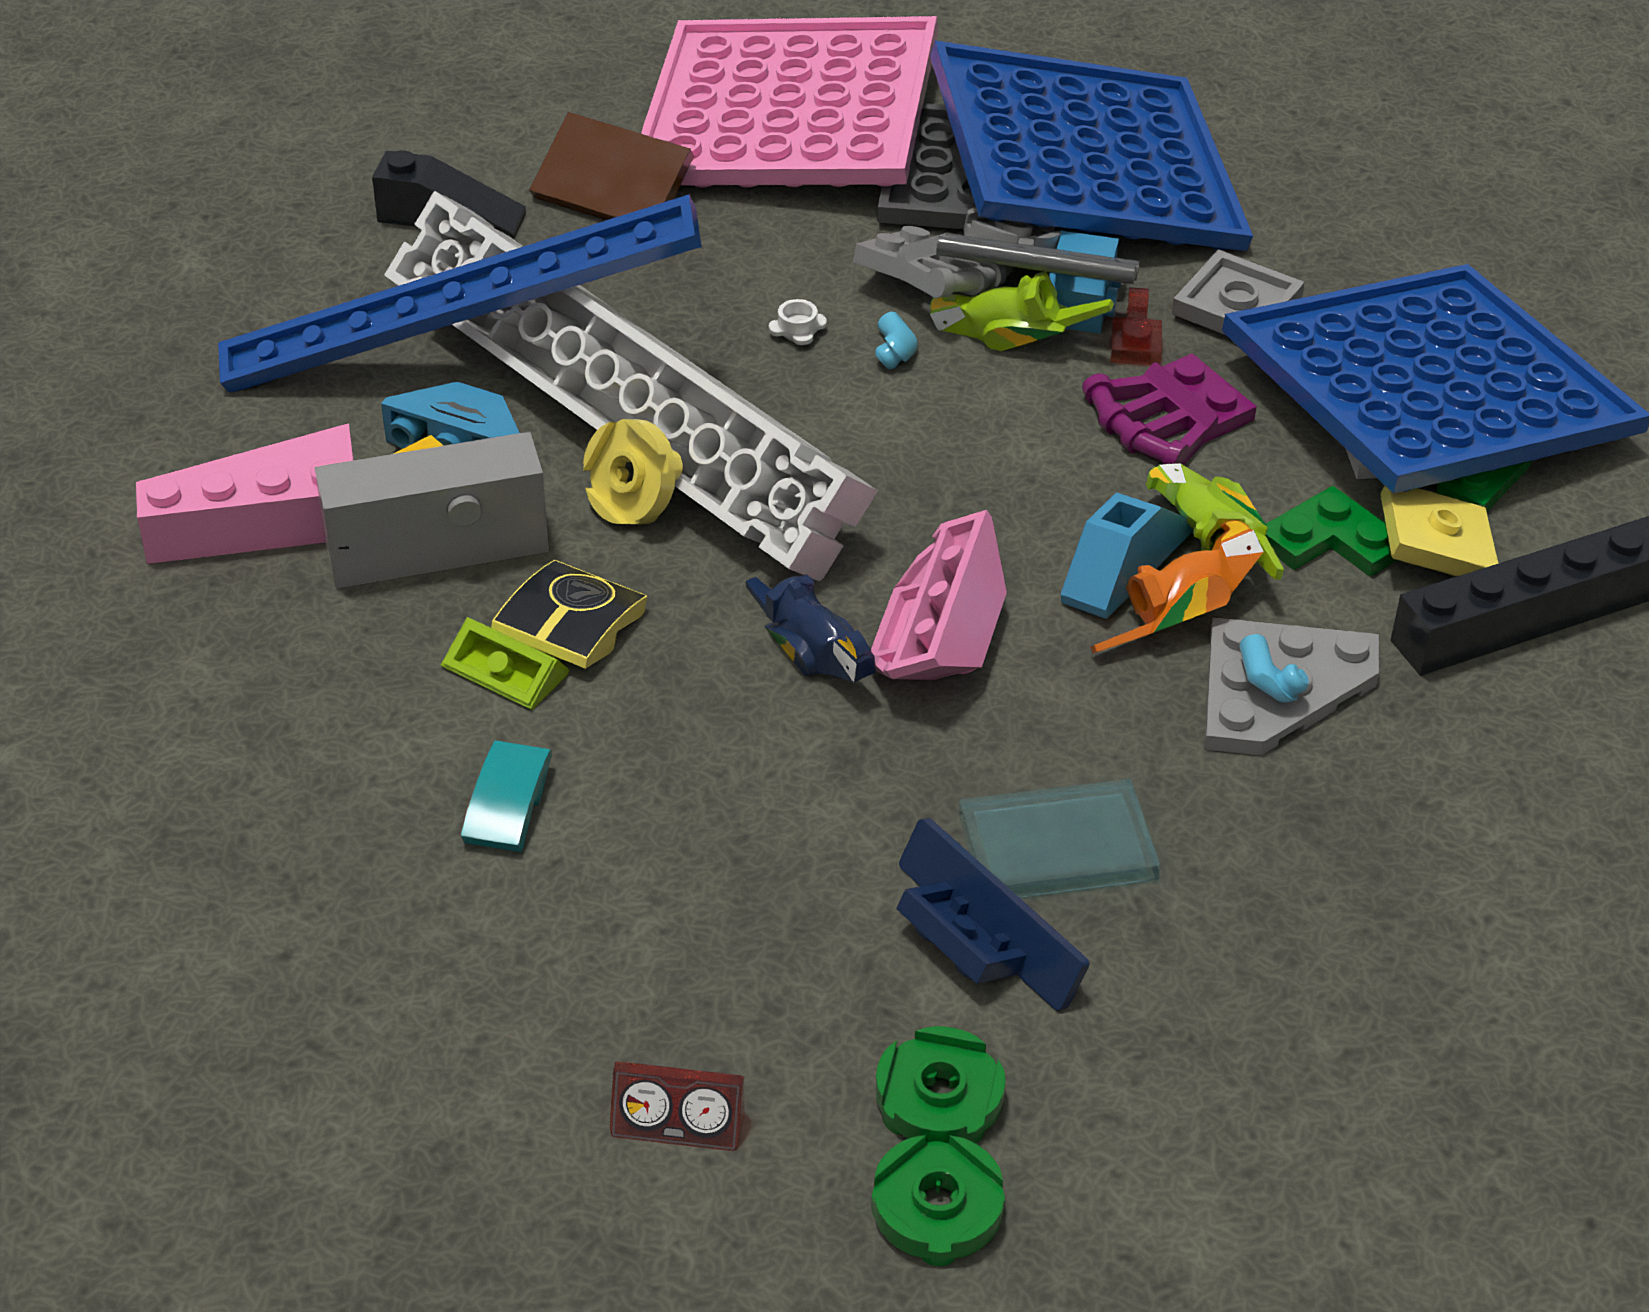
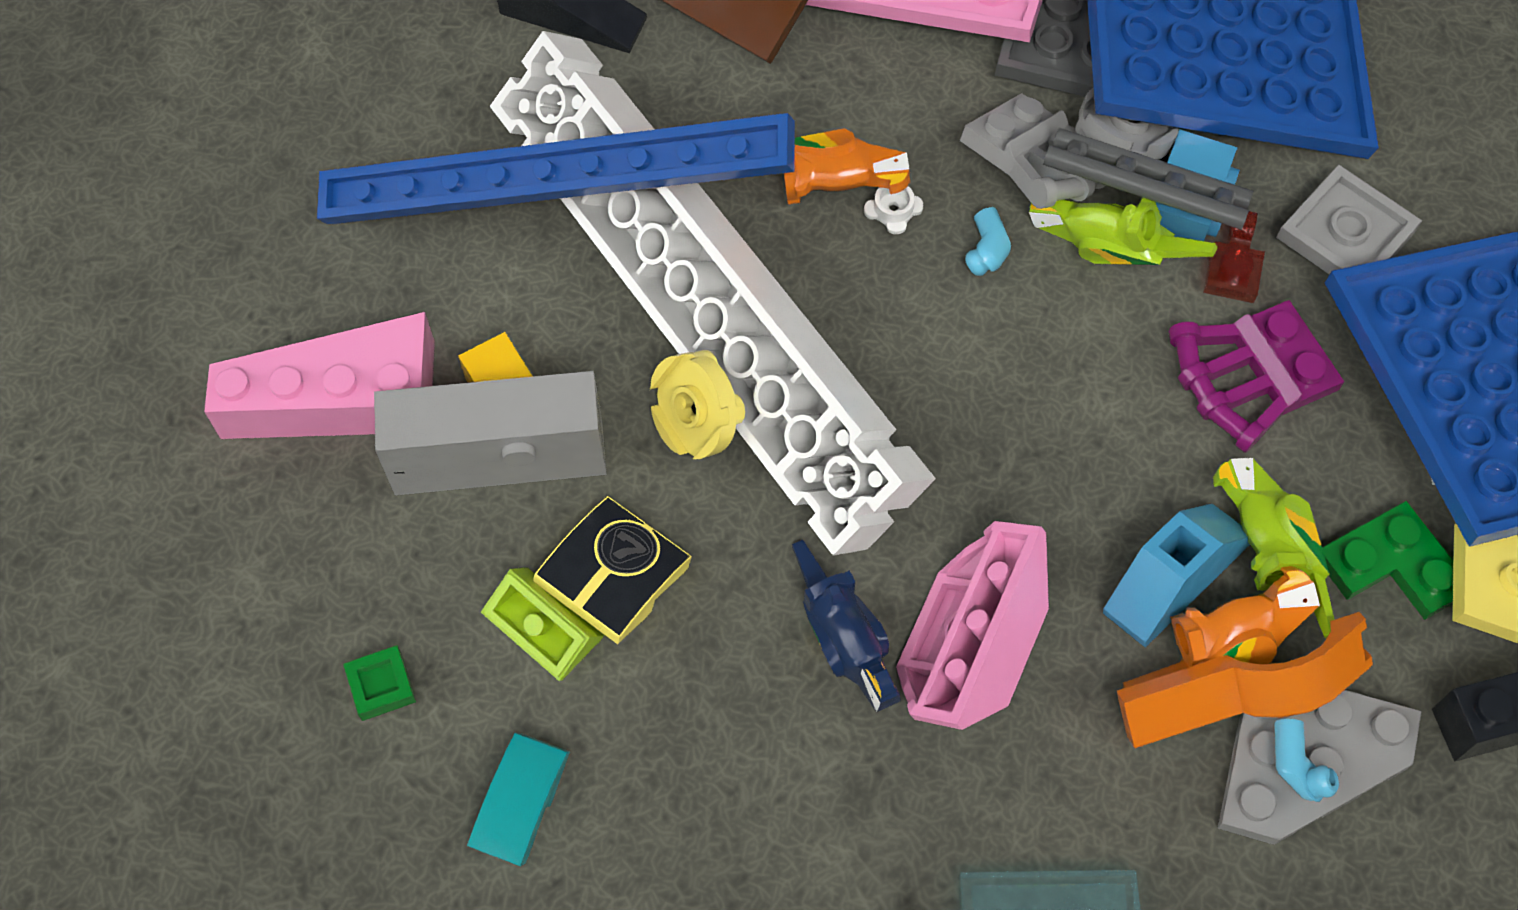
camera: 10 degrees right, 20 degrees up
(348, 722) = (379, 683): none -> green plate
(448, 413) = (537, 311): dark azure slope -> none
(725, 293) = (843, 162): none -> orange animal
(1203, 622) = (1234, 687): none -> orange piece

